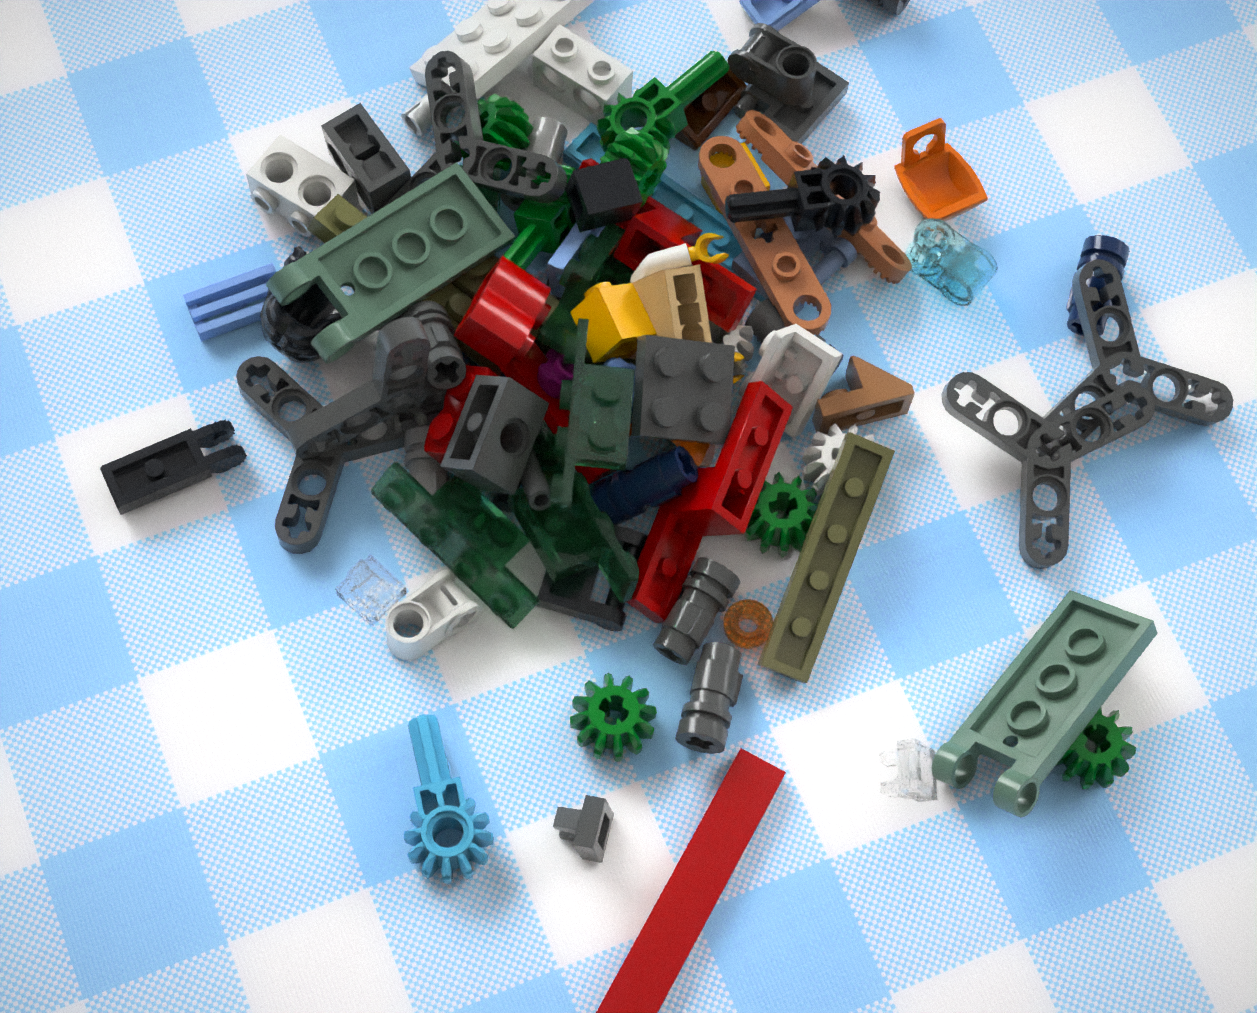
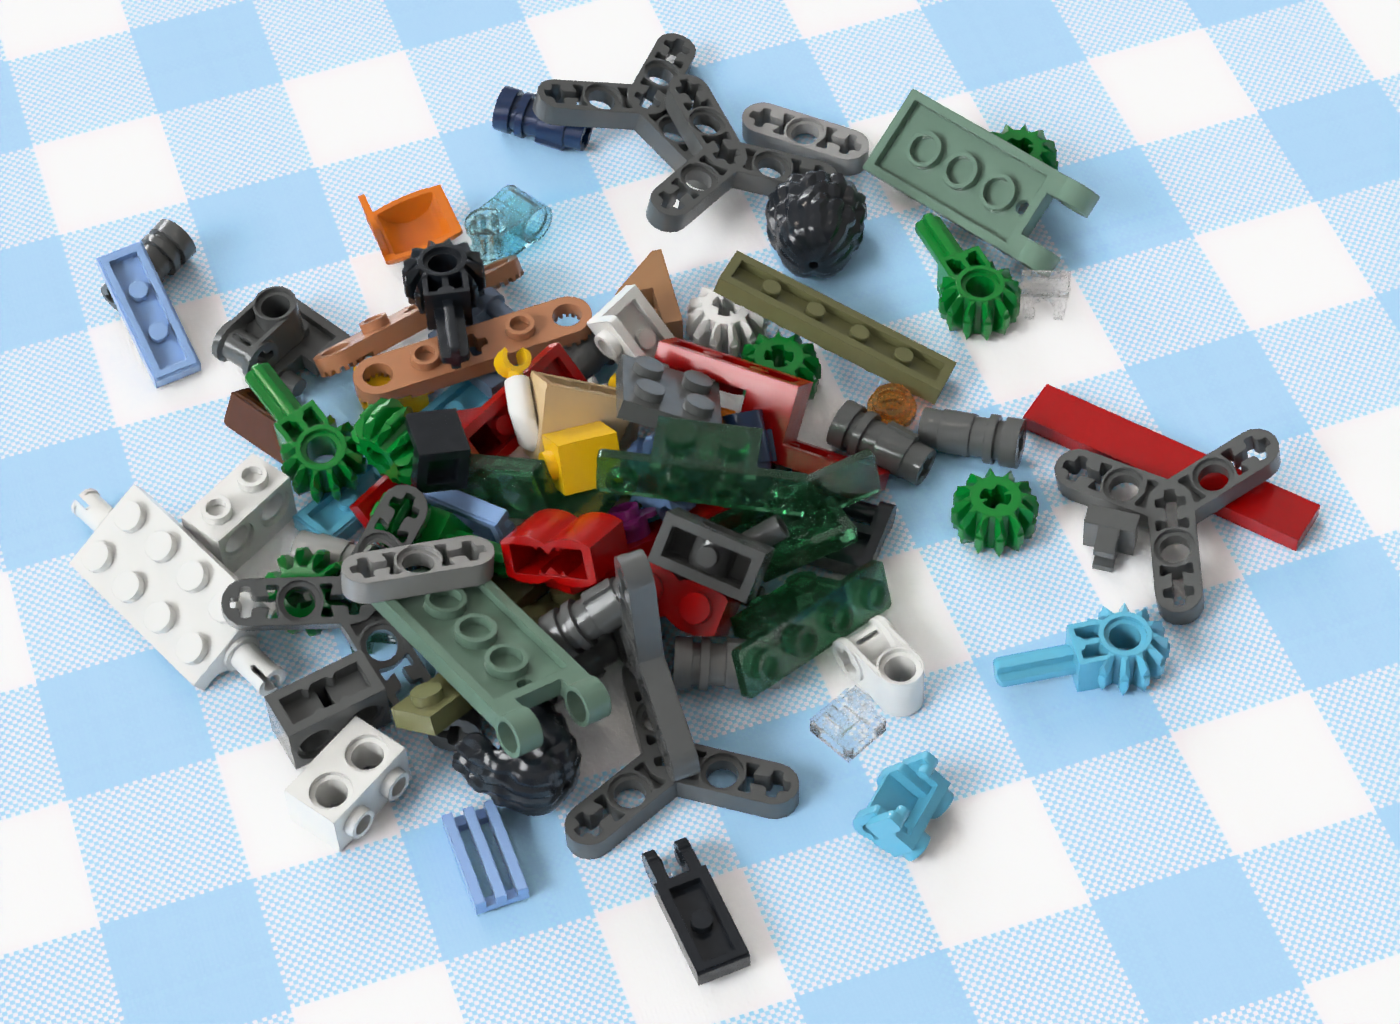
camera: 80 degrees left, 15 degrees down
(266, 633) = (903, 805): none -> medium azure piece
(478, 174) = (368, 576): none -> light grey beam
(641, 900) = (1192, 504): none -> dark grey piece
(919, 689) = (969, 287): none -> green gear
(970, 541) = (815, 222): none -> black hair
(1124, 522) = (777, 126): none -> light grey beam

